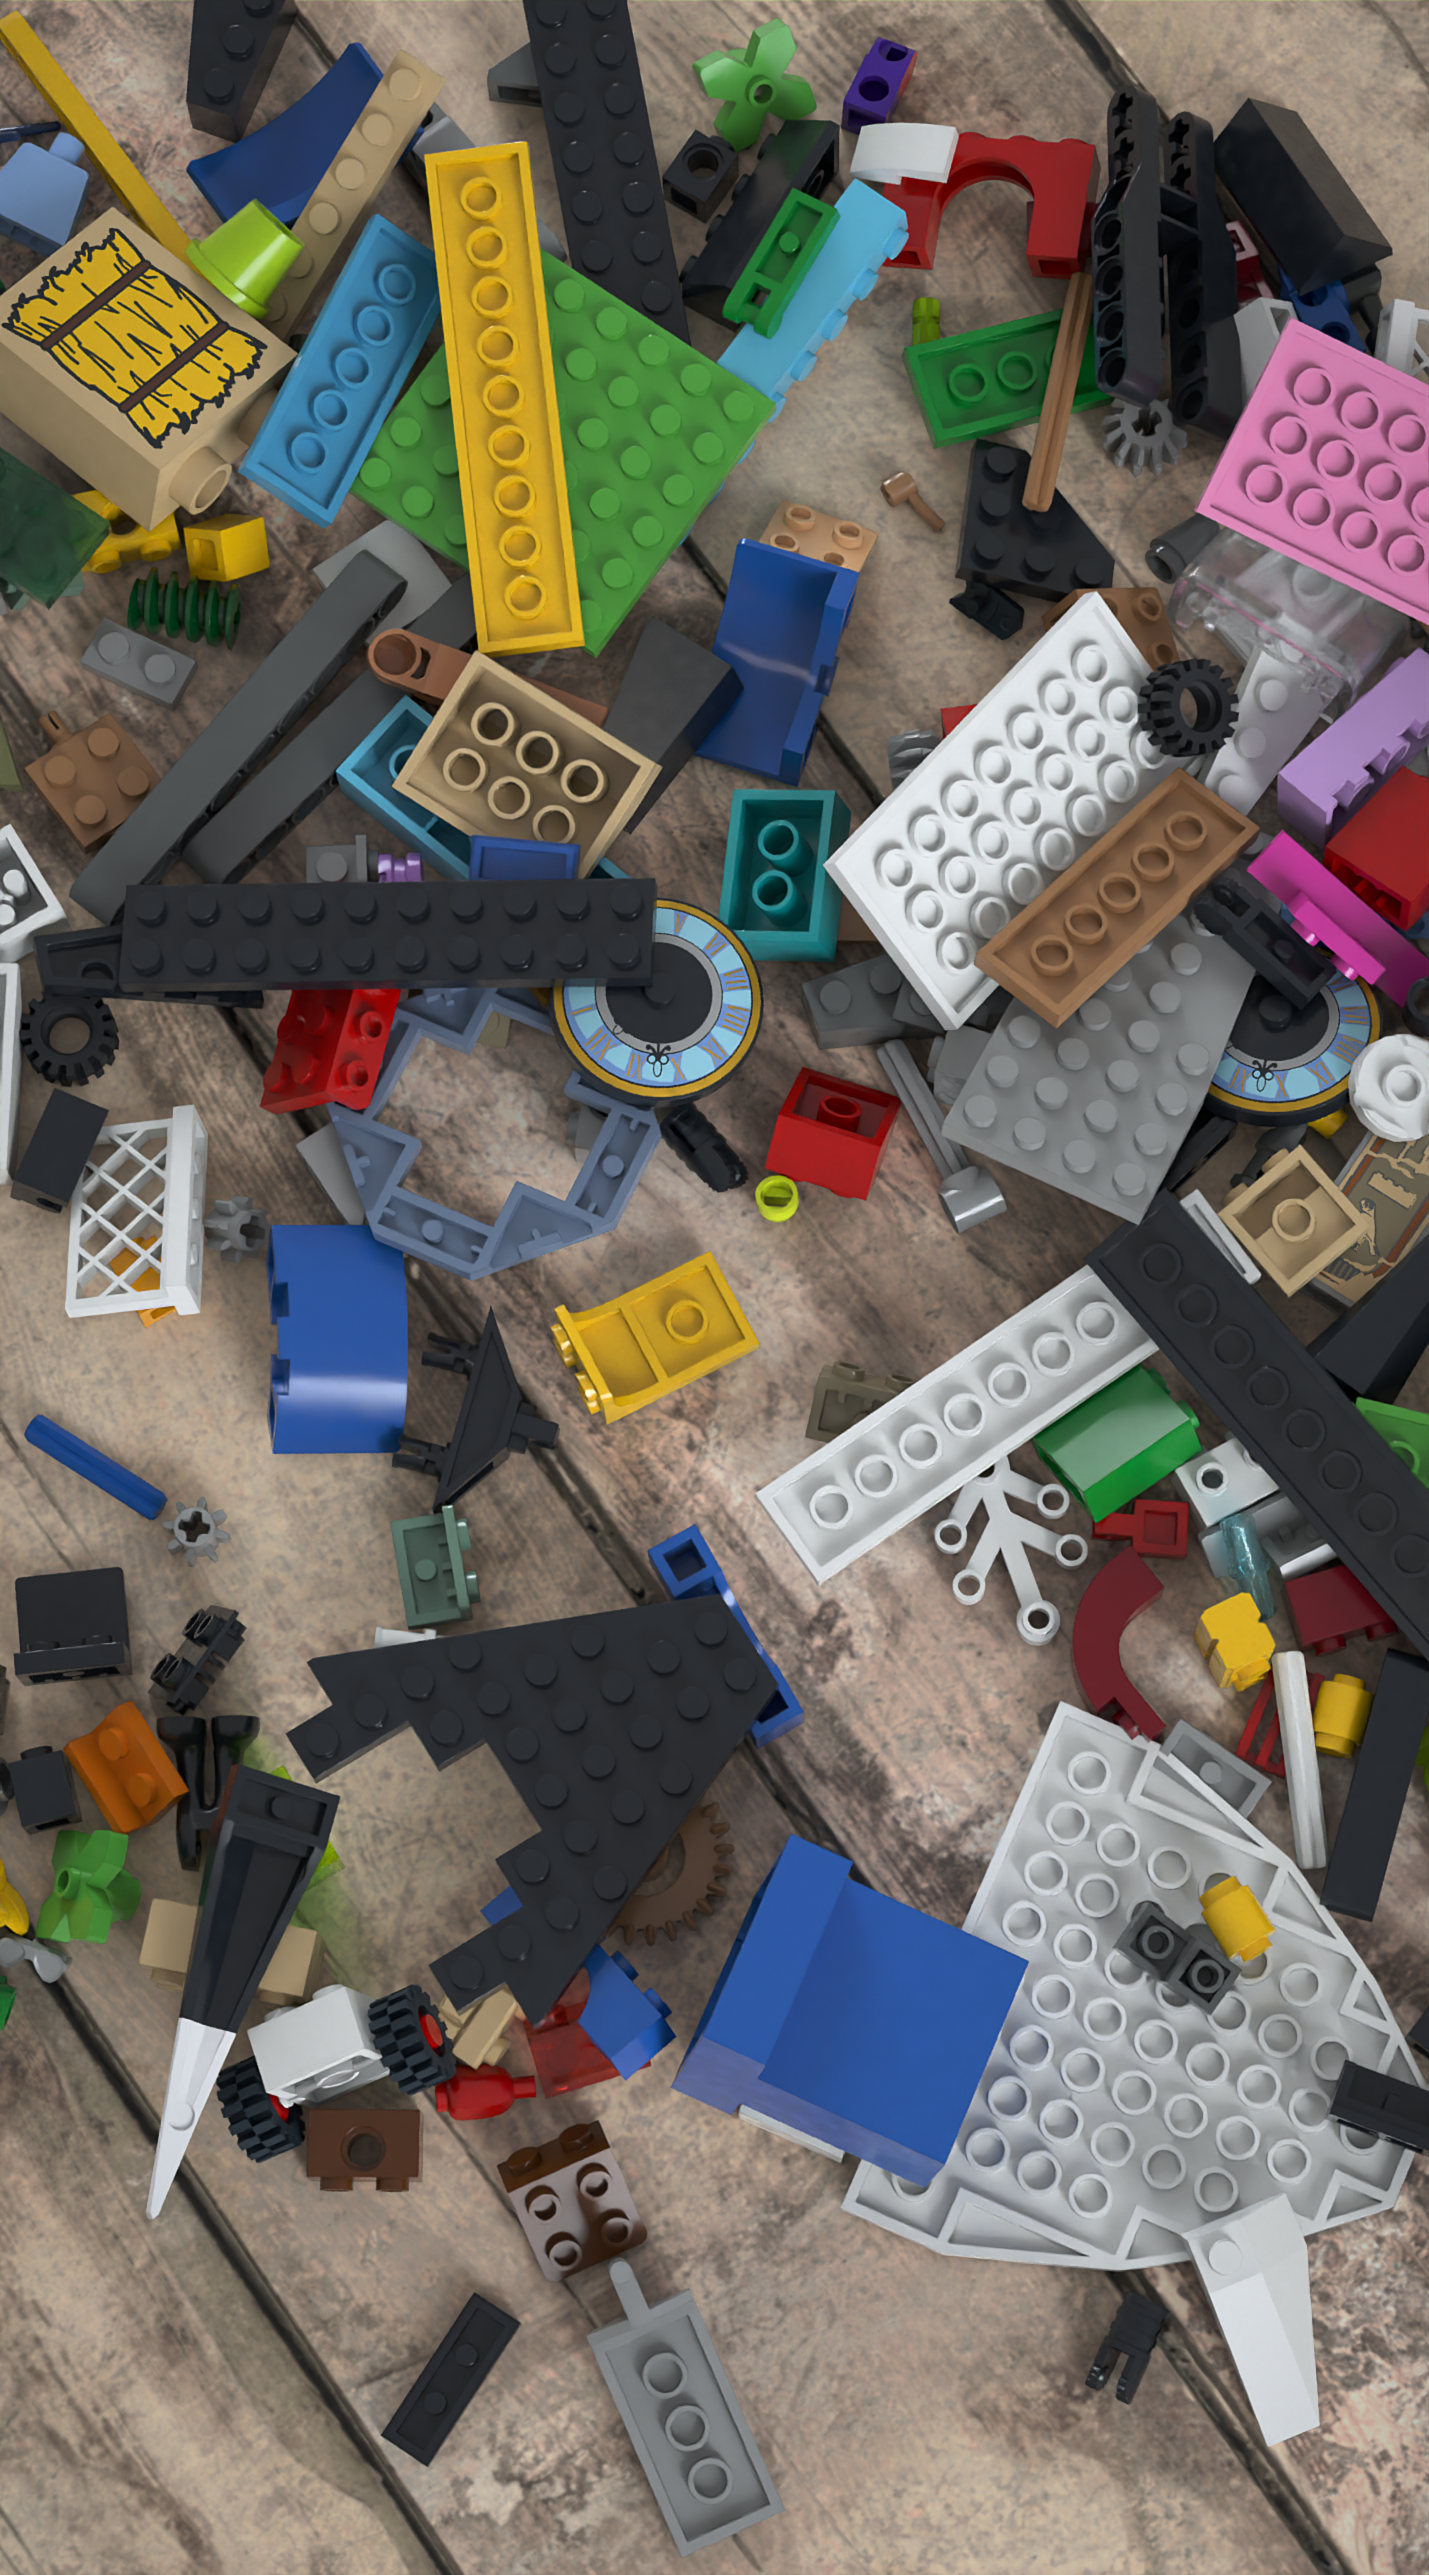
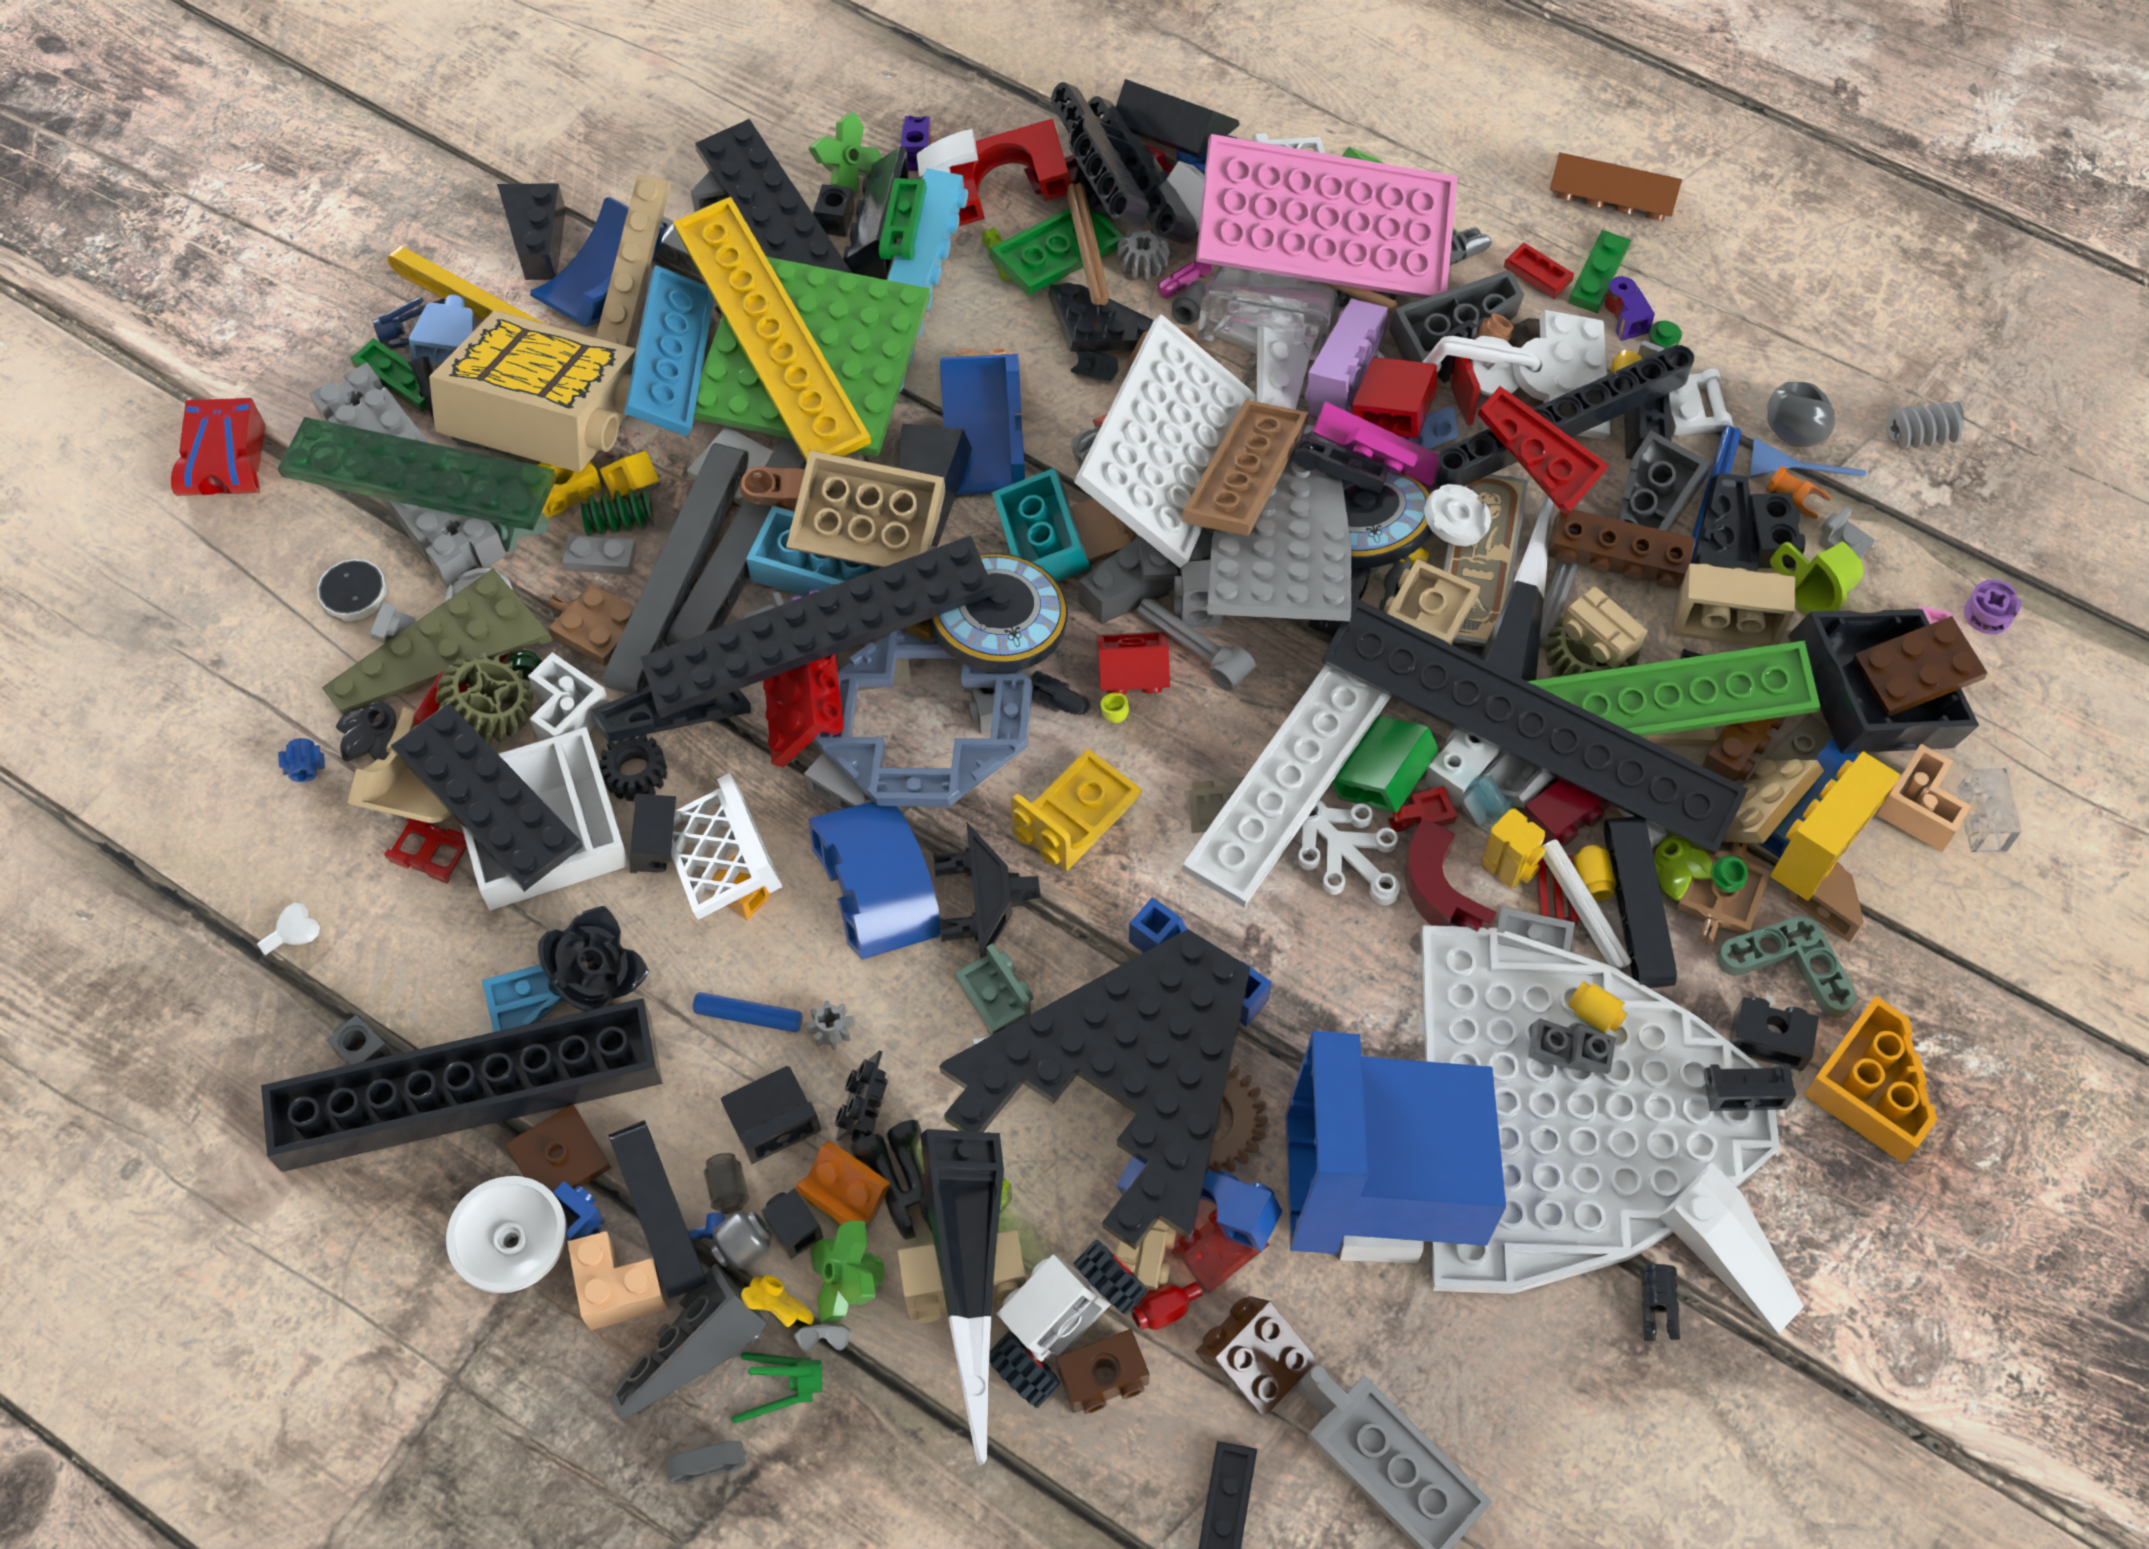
camera: 25 degrees left, 15 degrees down
(236, 1229) = (785, 837): light grey gear -> none
(247, 257) = (586, 310): lime container -> none
(522, 859) = (882, 556): blue tile -> none
(903, 488) = (1018, 323): medium nougat hand -> none
(1181, 498) = (1182, 278): none -> dark pink axle
(1211, 701) = (1237, 367): black tyre -> none

